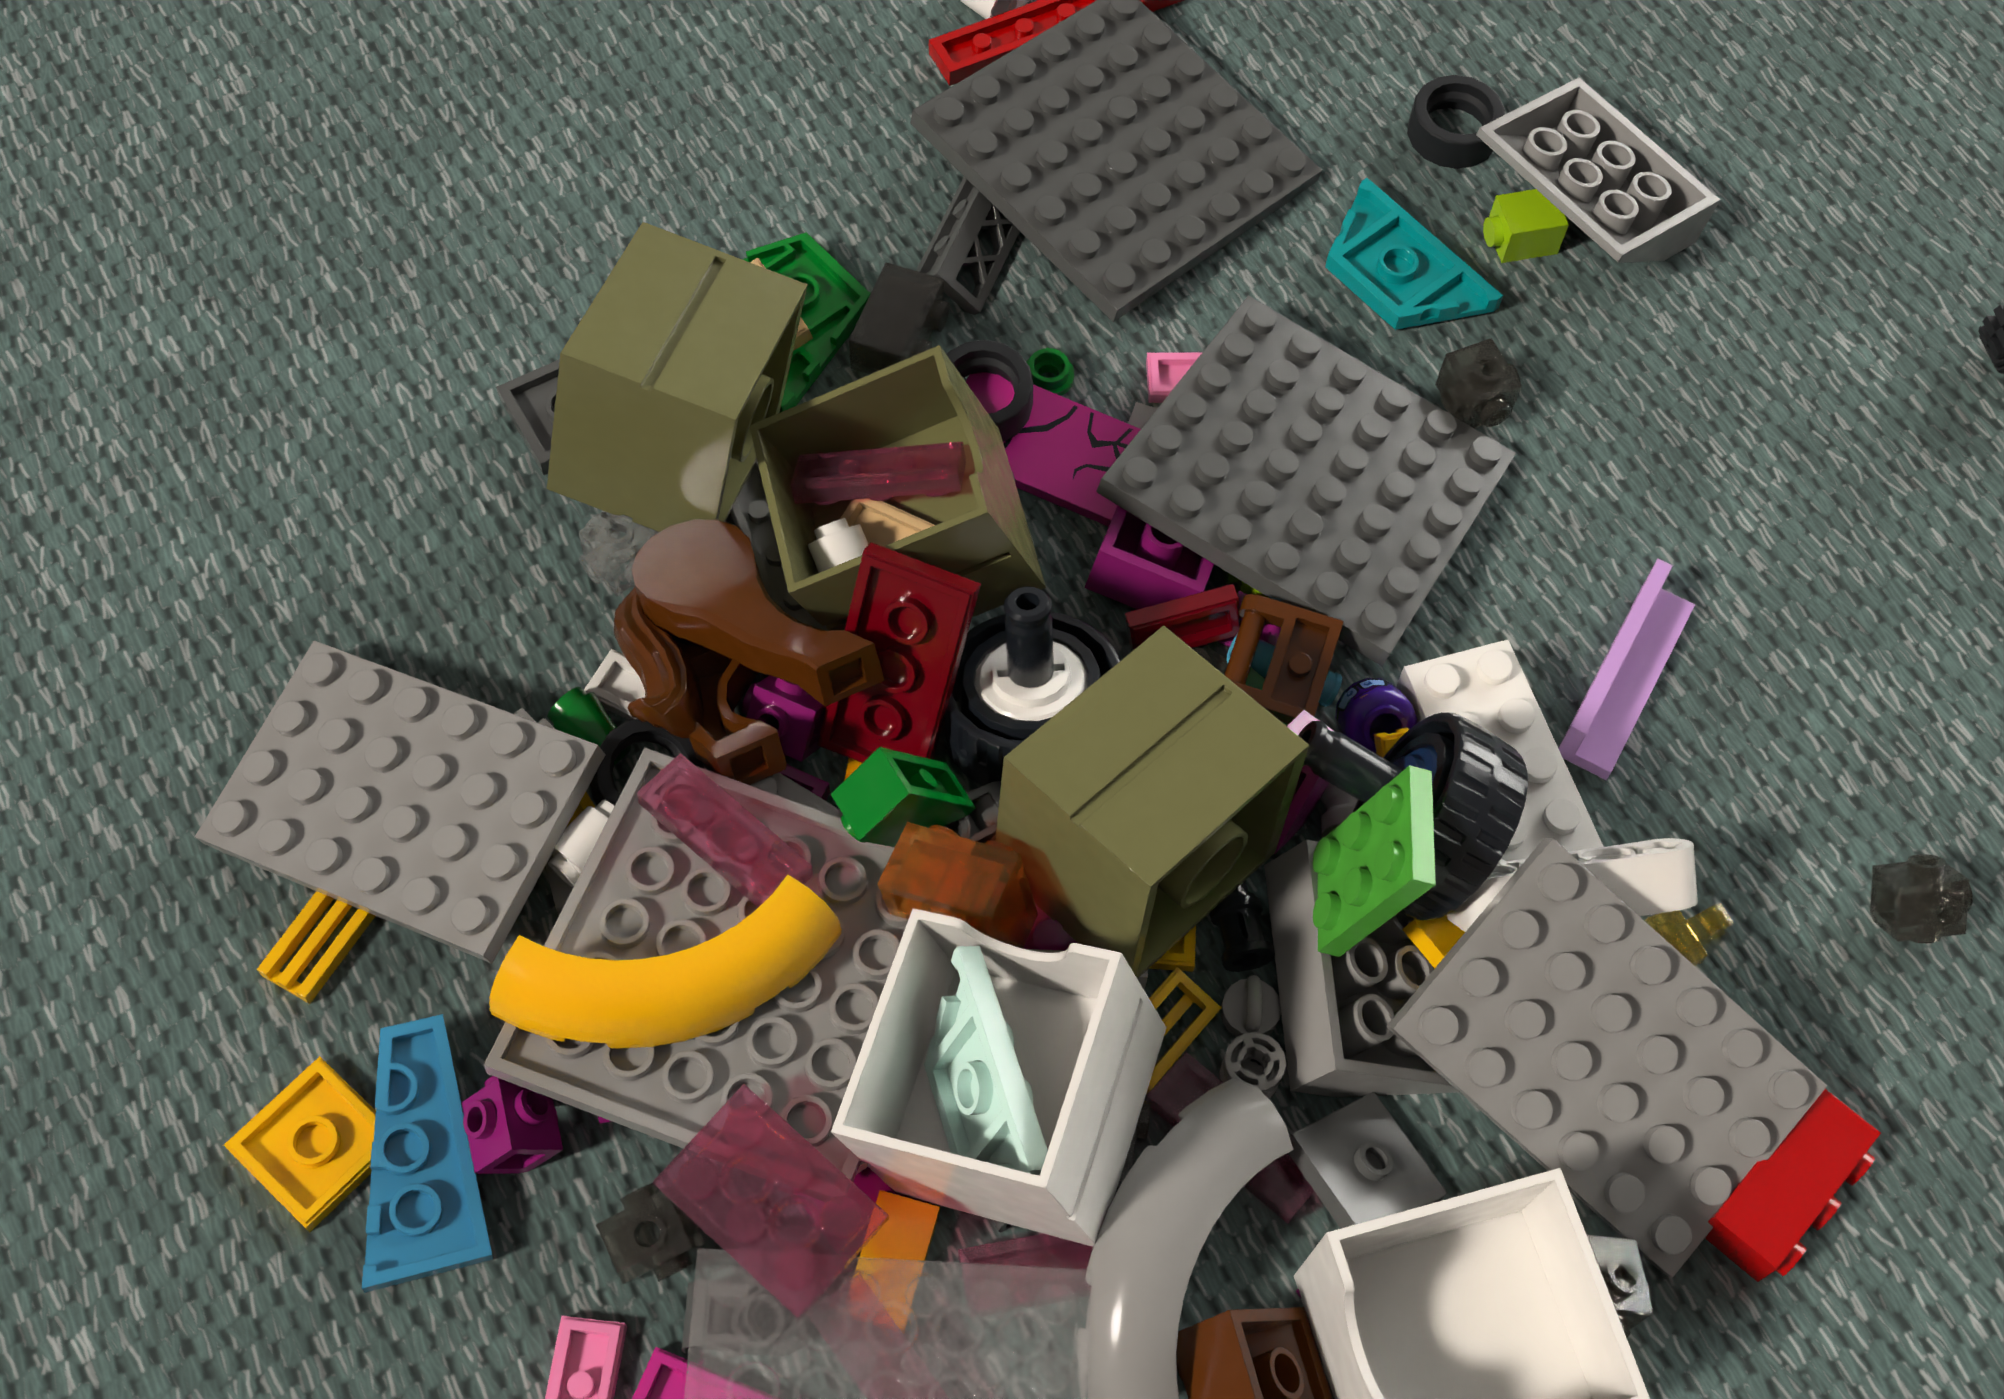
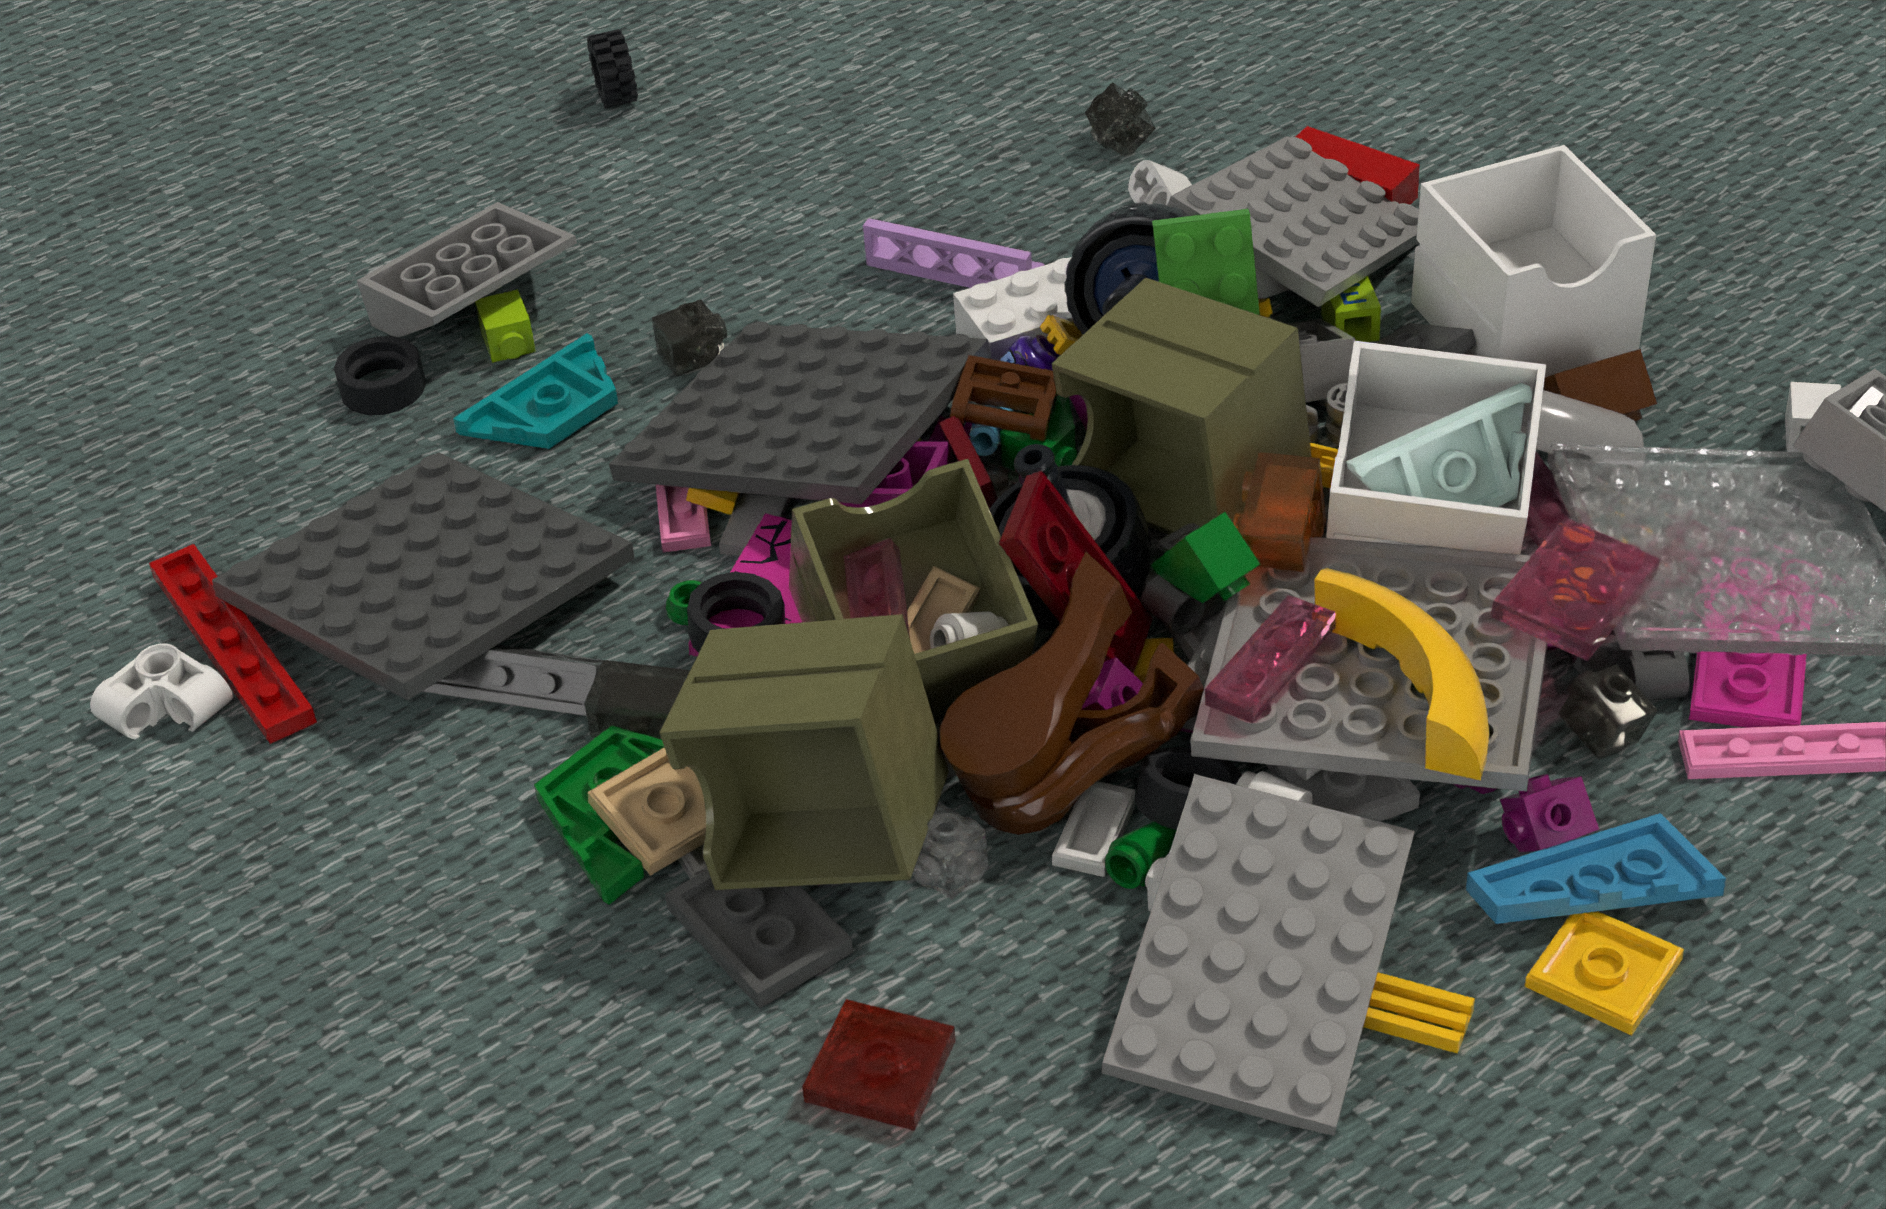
camera: 90 degrees left, 20 degrees down
(394, 478) = (879, 1064): none -> clear red plate
(1459, 1126) = (1355, 311): none -> lime brick

